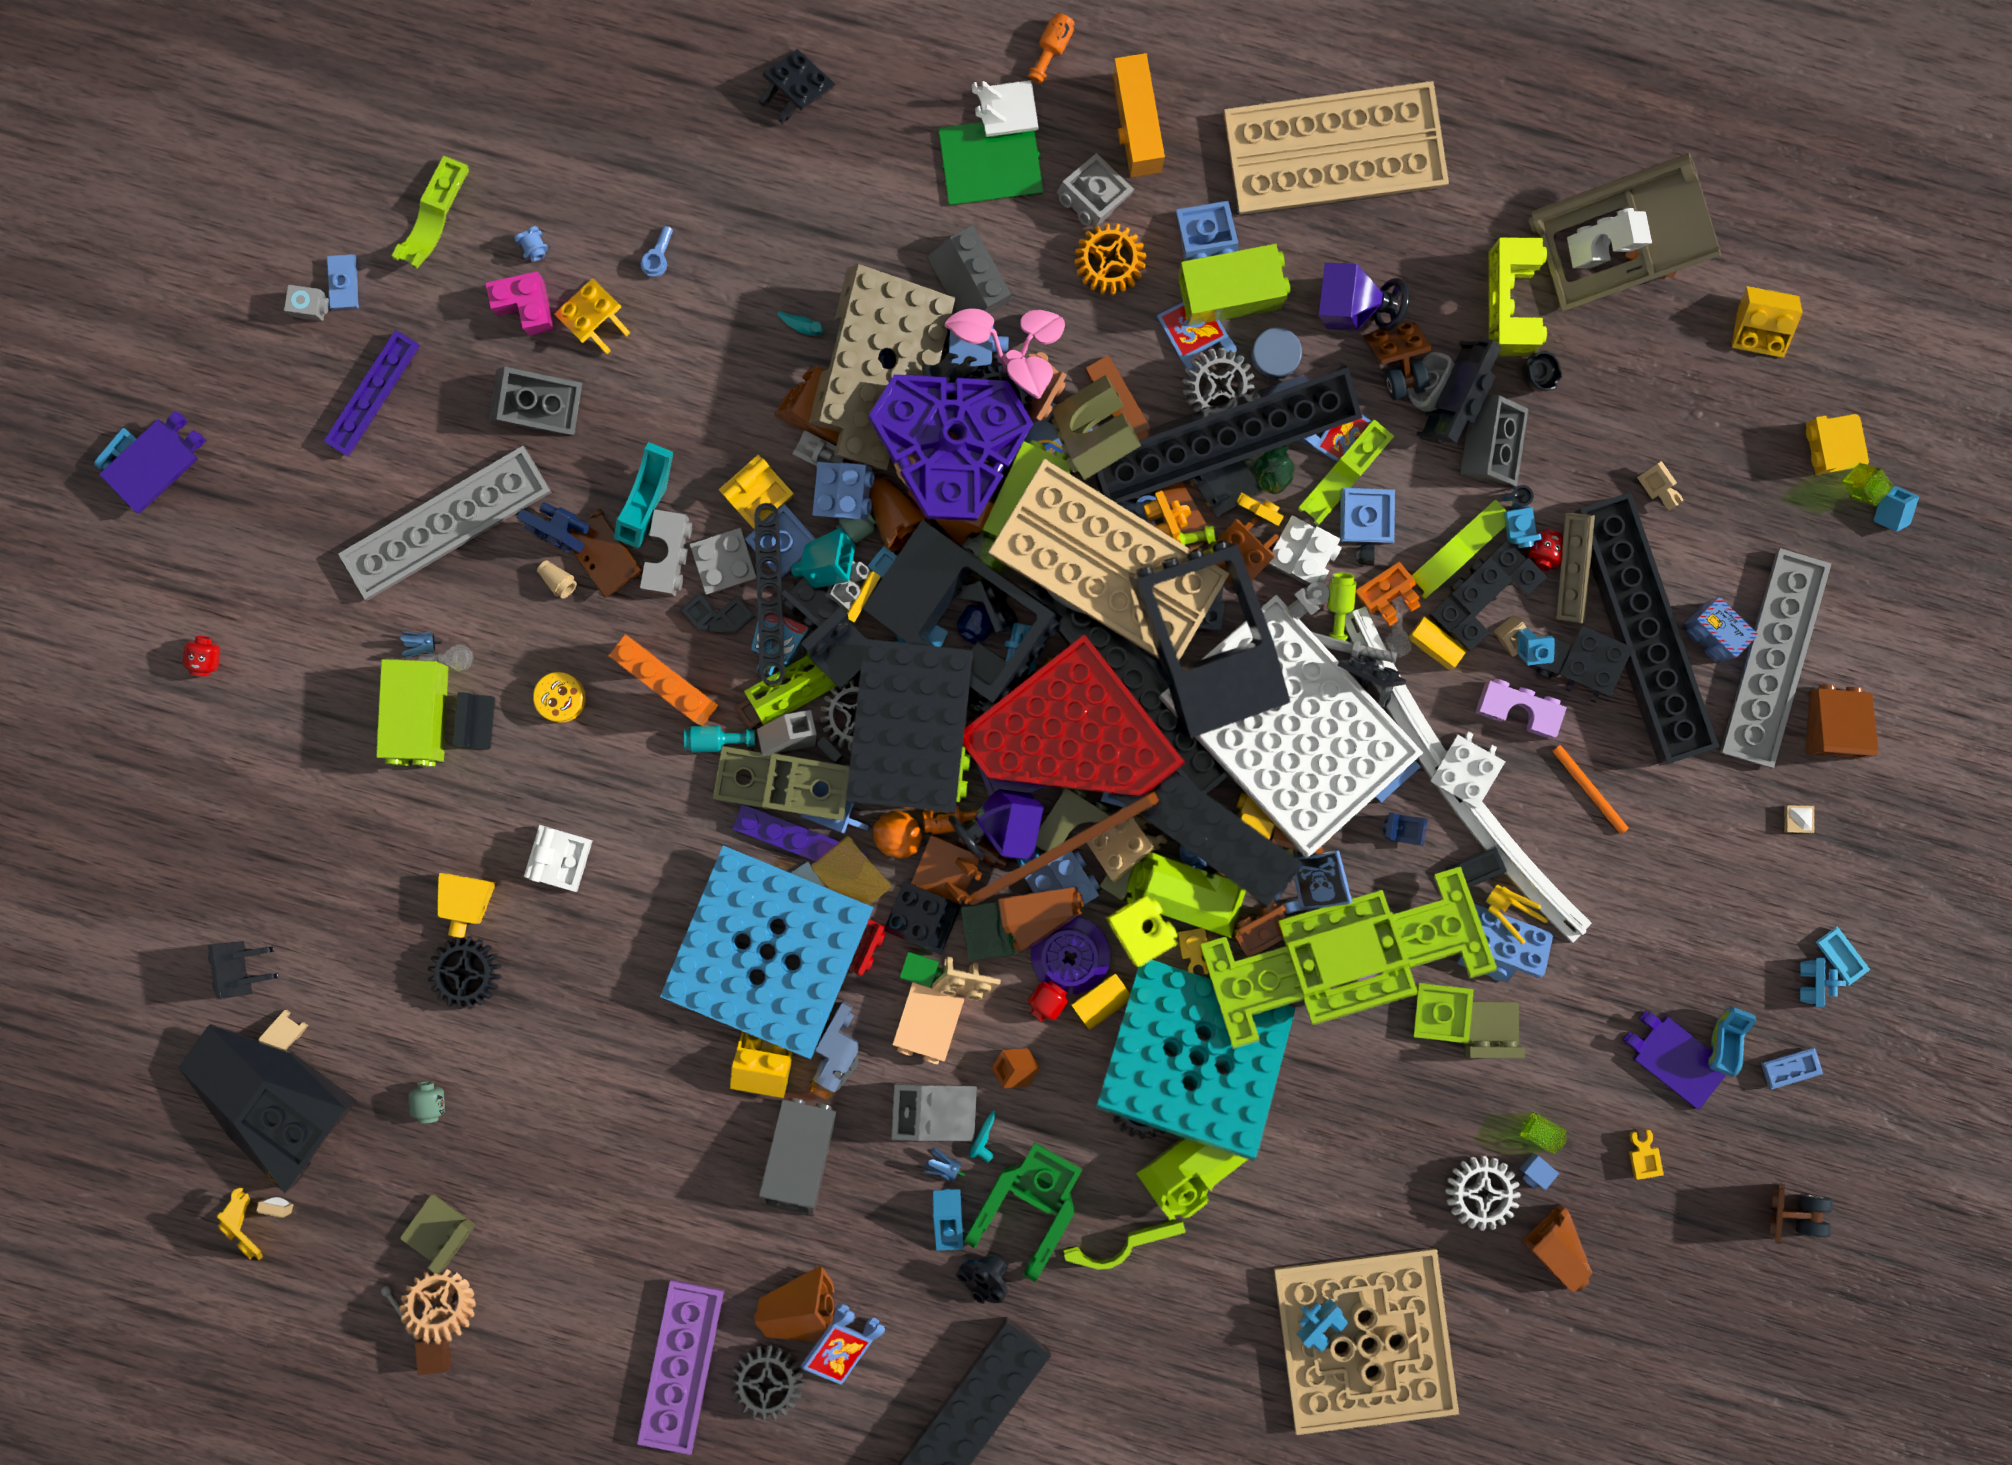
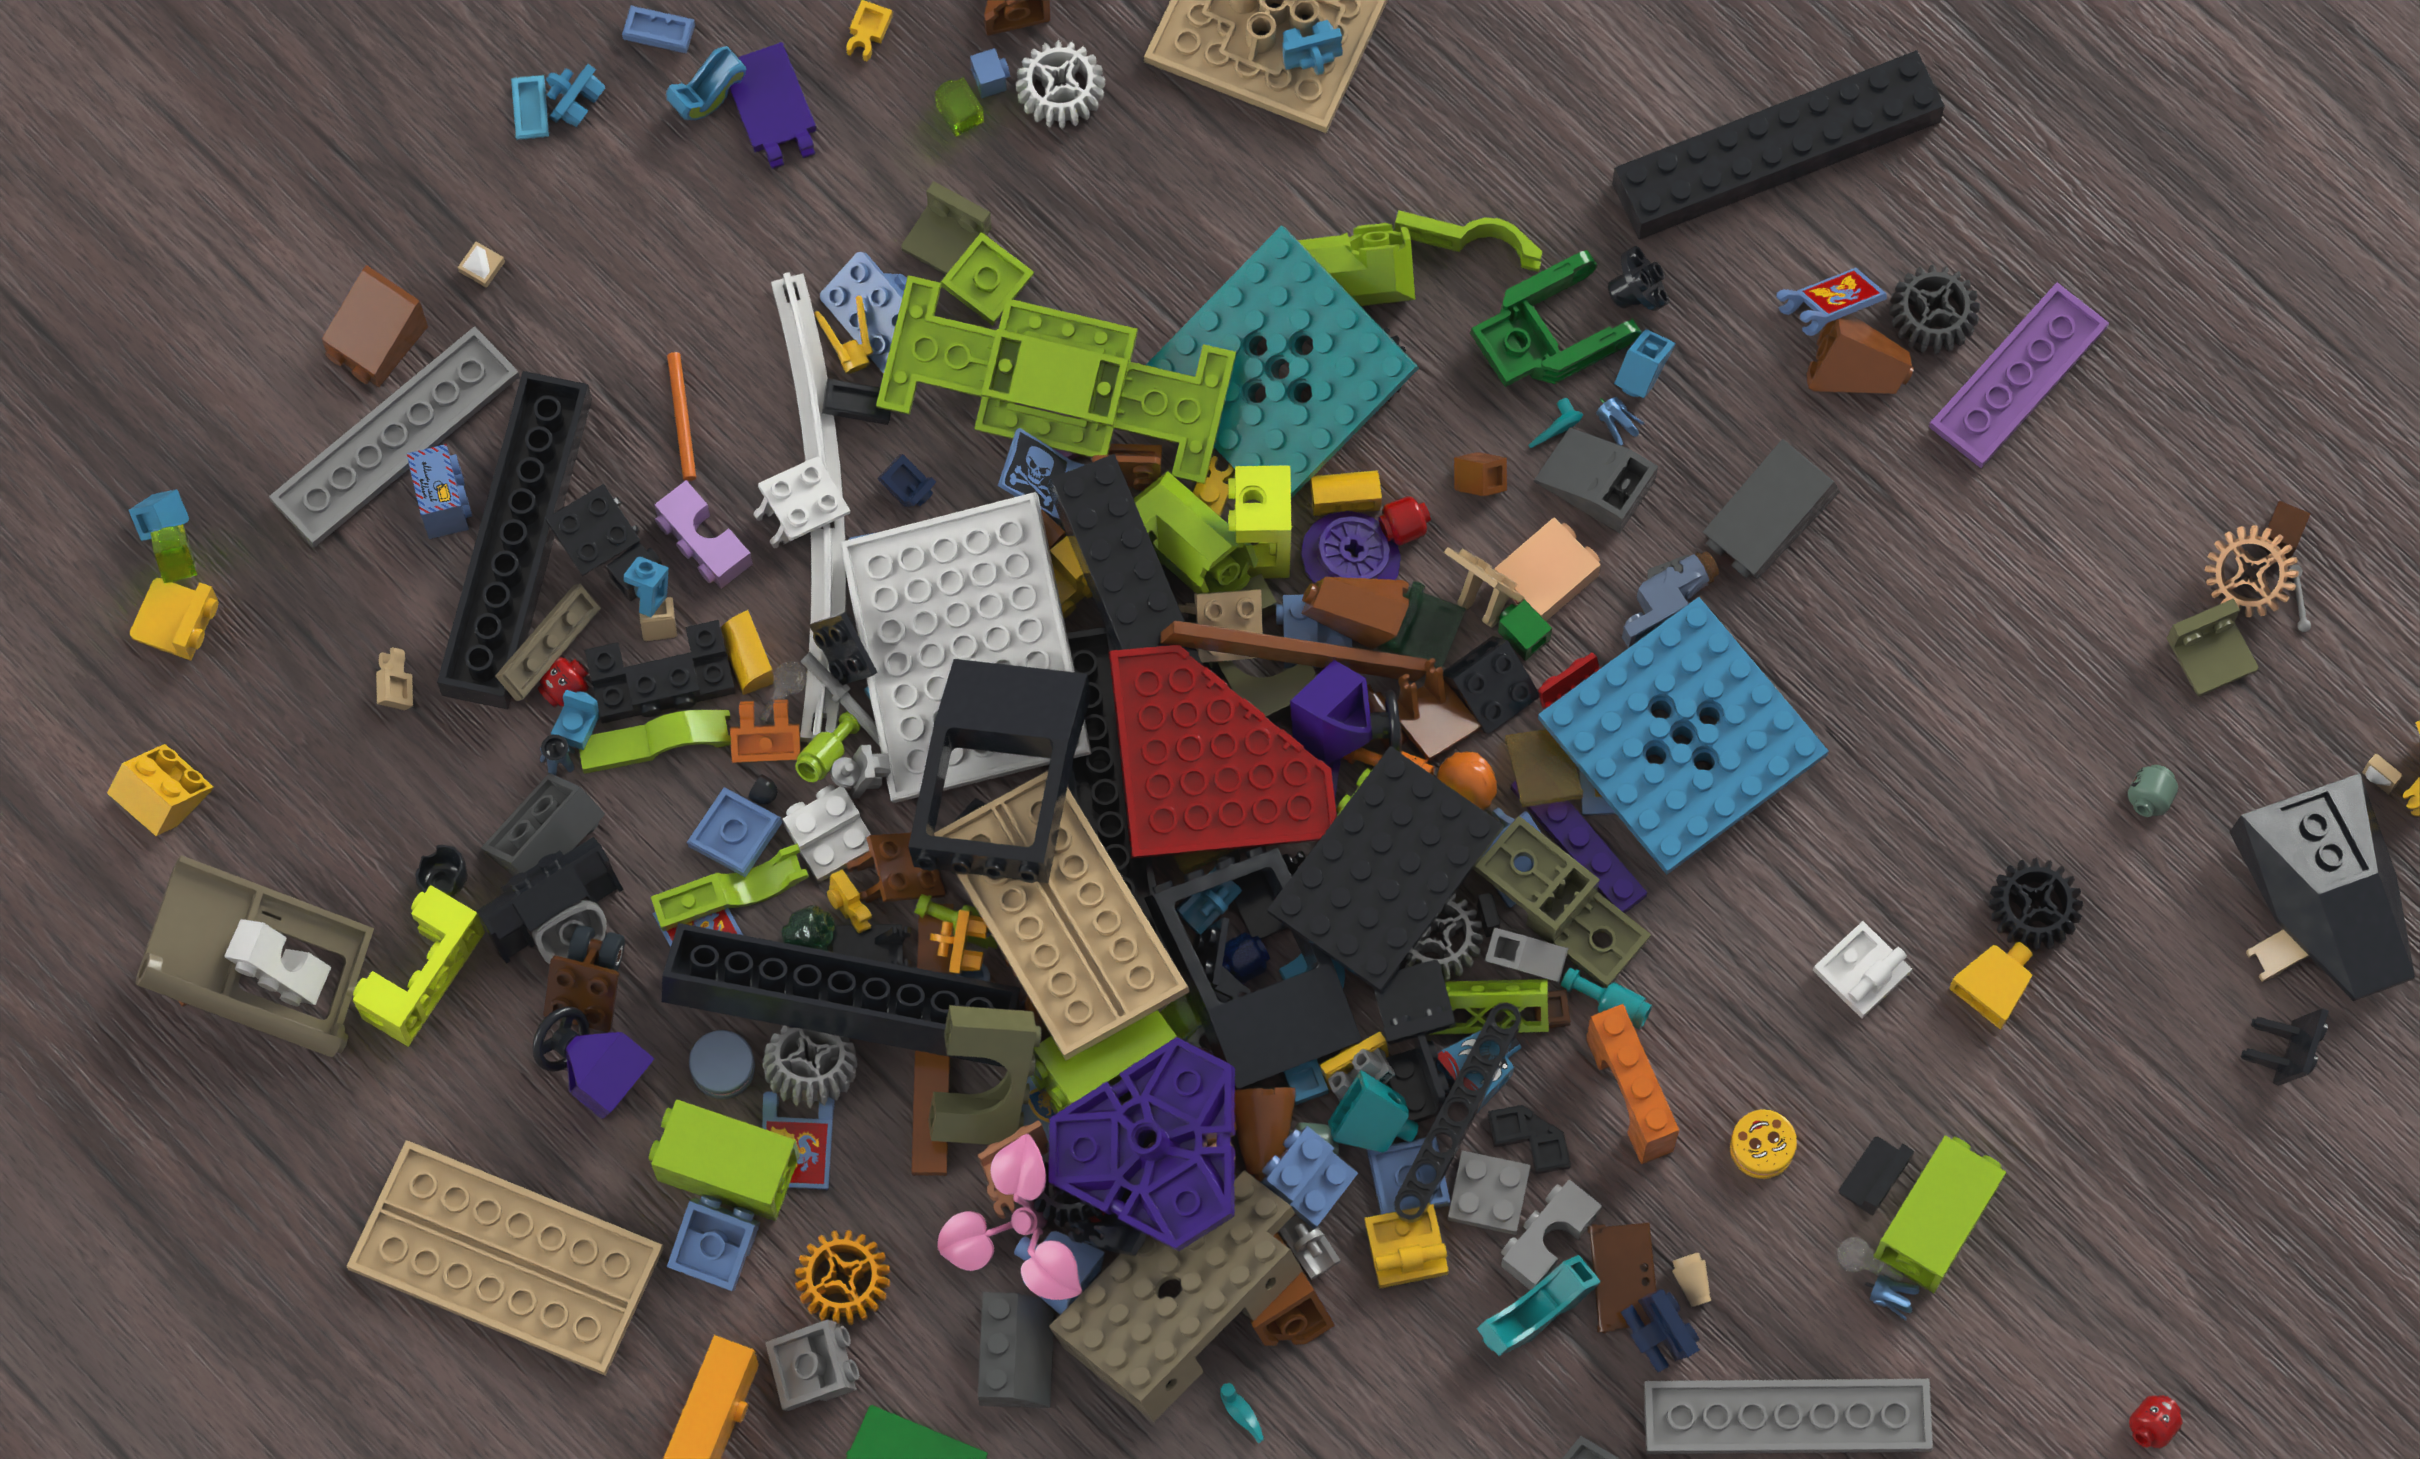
camera: 150 degrees left, 15 degrees down
(760, 1067) = (1760, 623): yellow slope -> none

